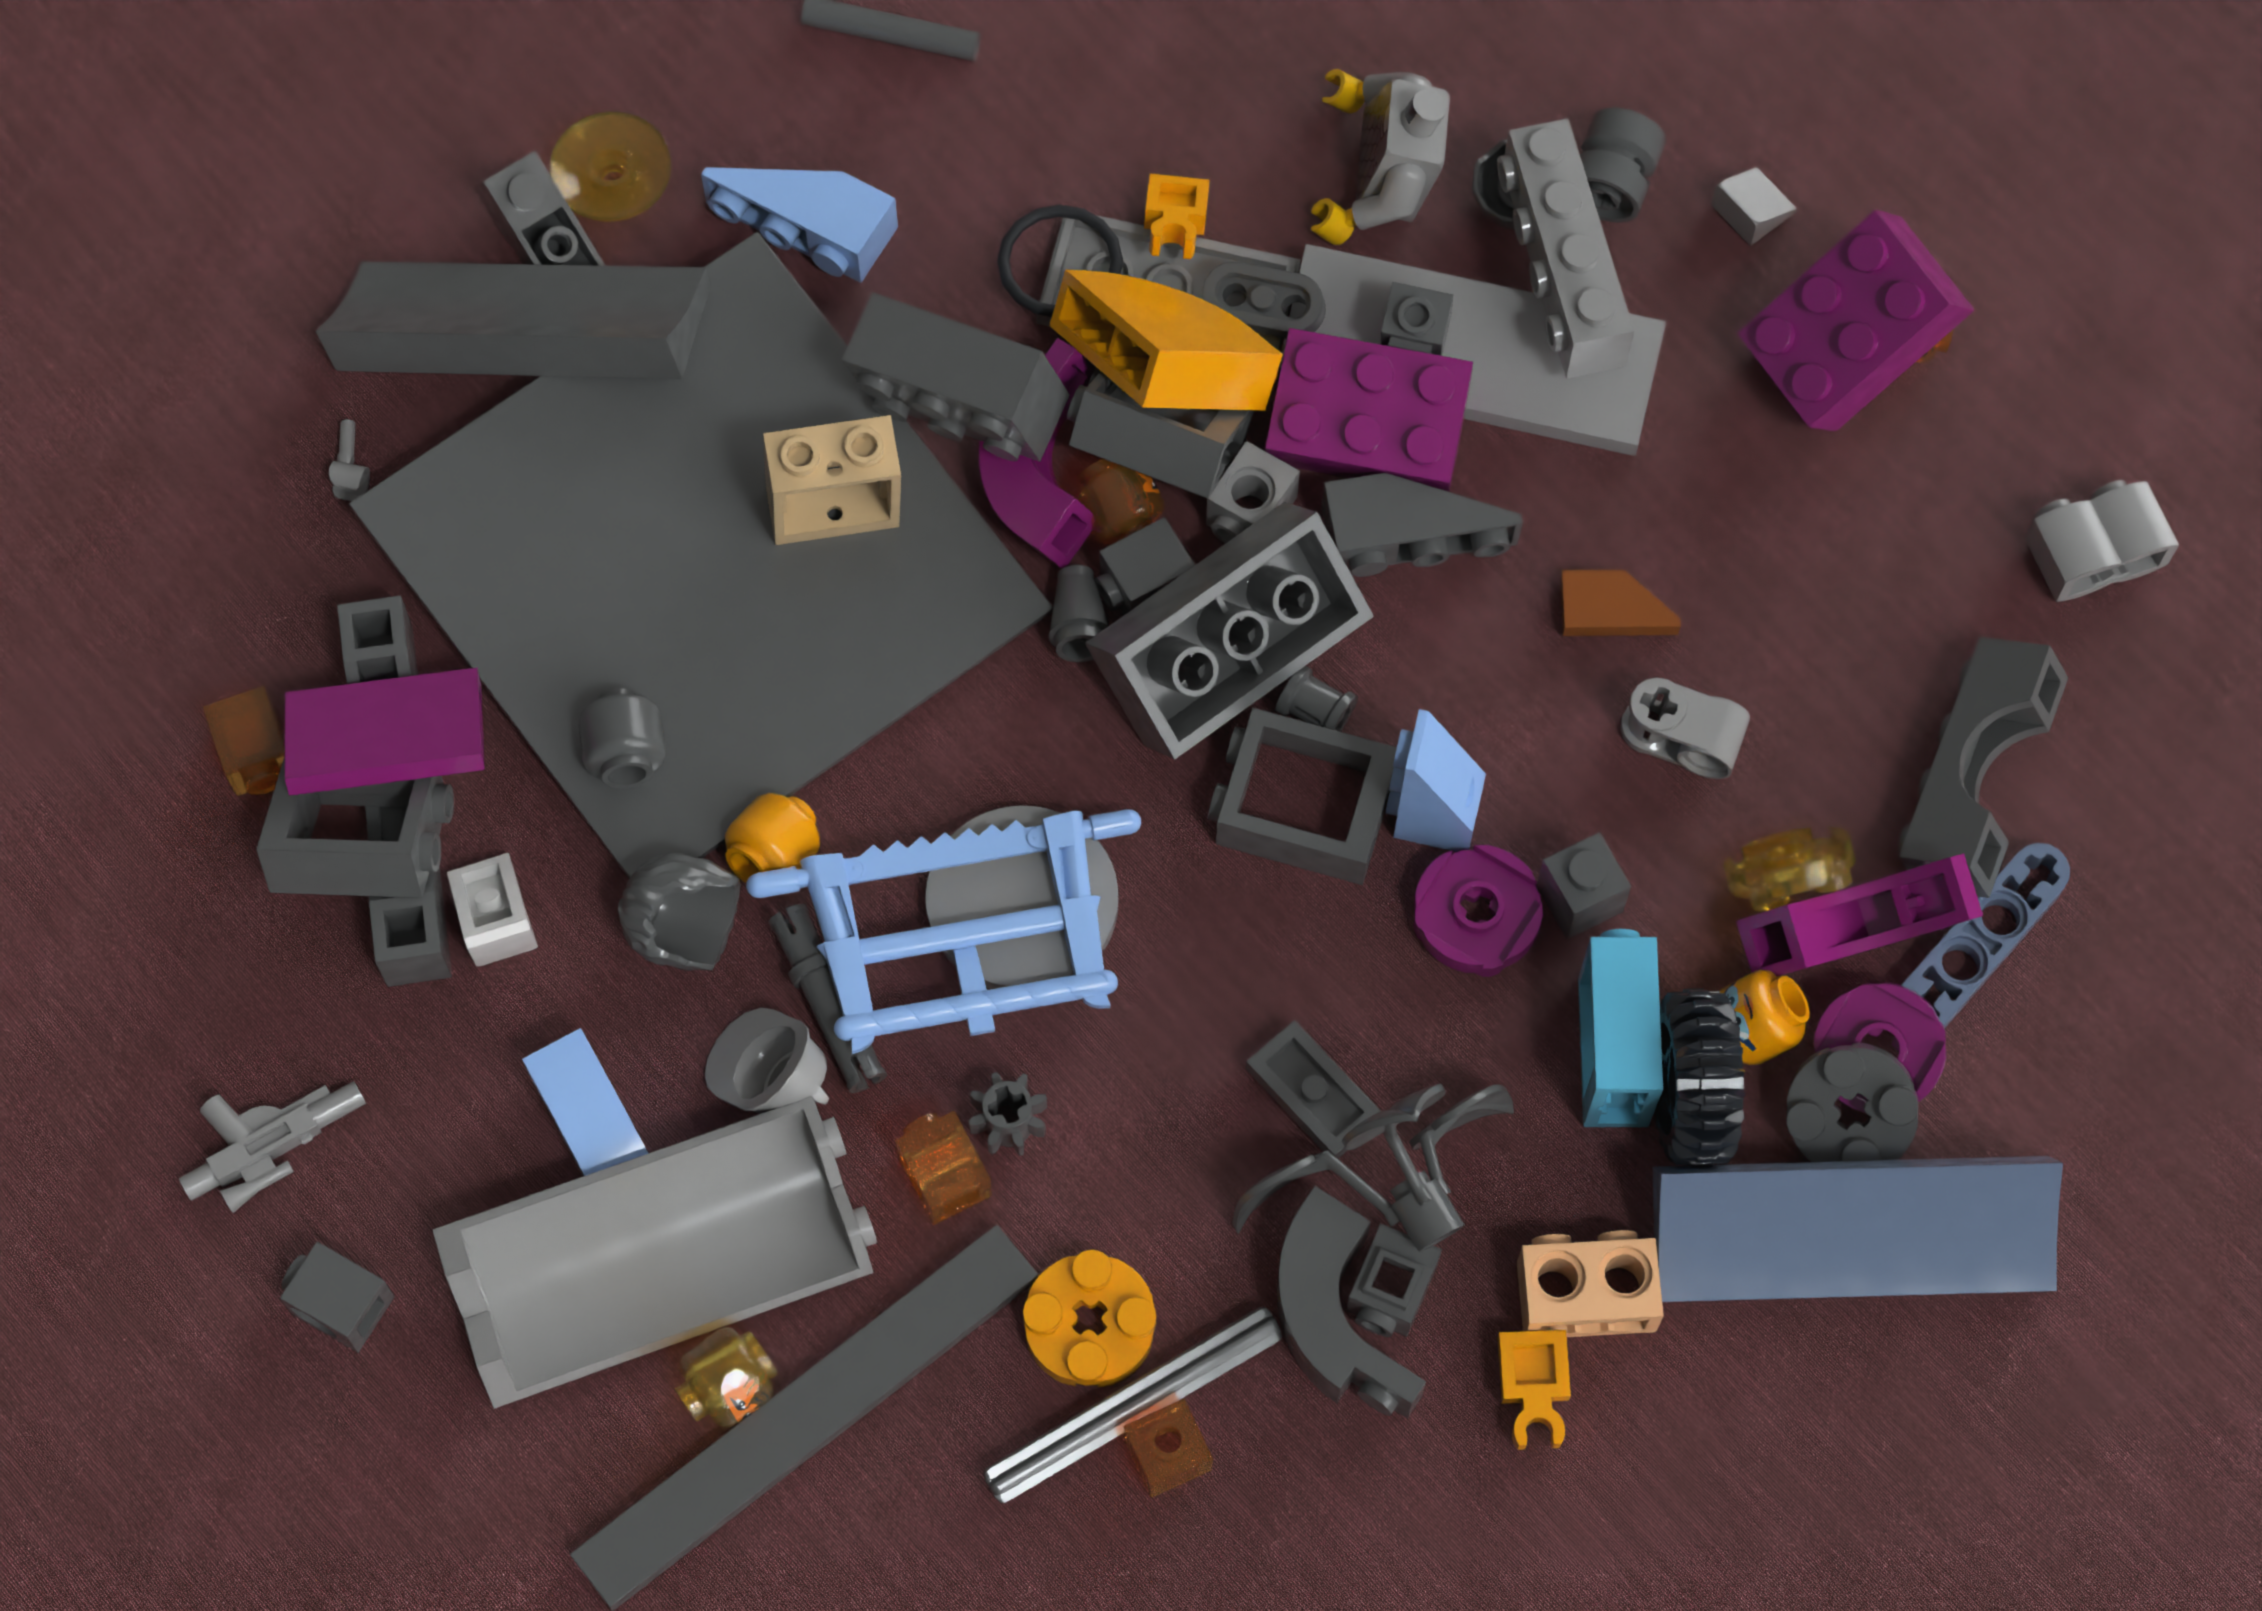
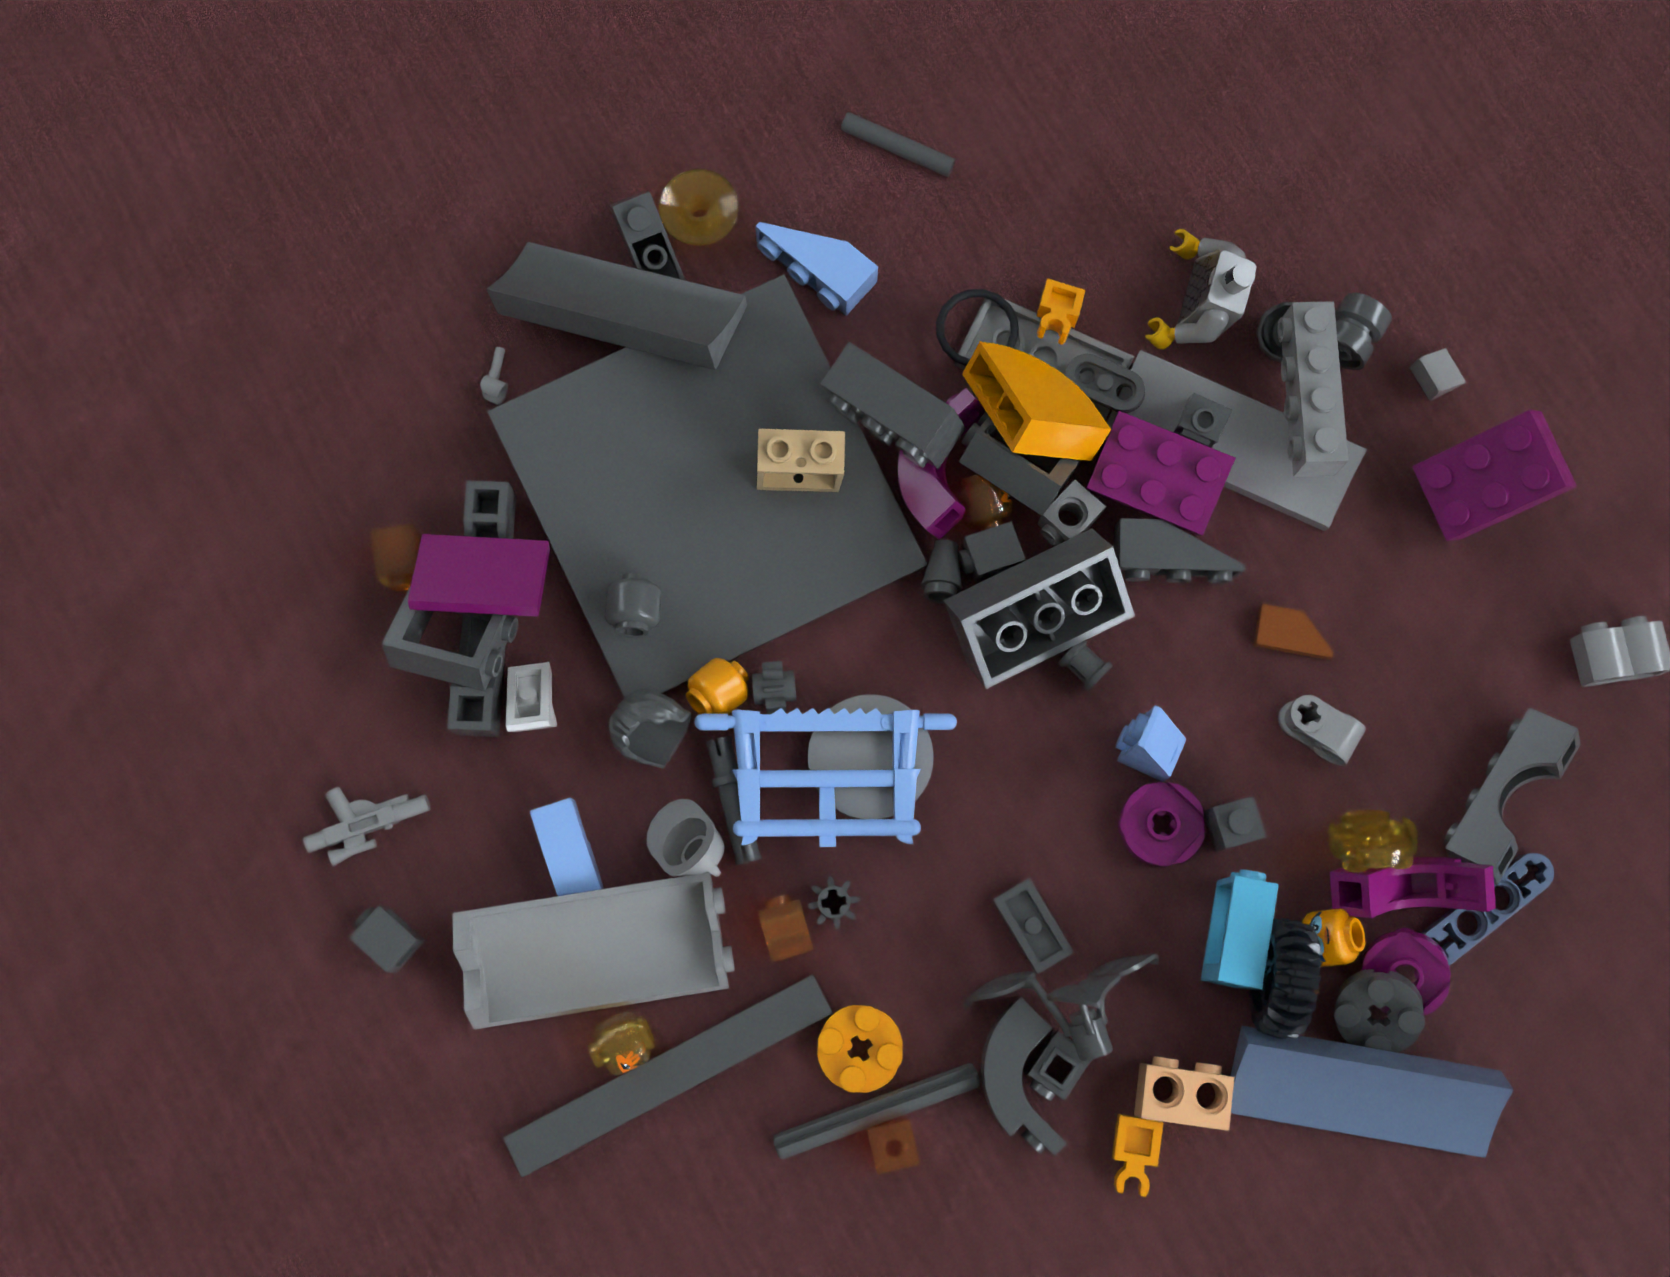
camera: 10 degrees right, 10 degrees up
(856, 819) = (774, 686): none -> dark grey gear
(1291, 845) = (1105, 745): dark grey window -> none

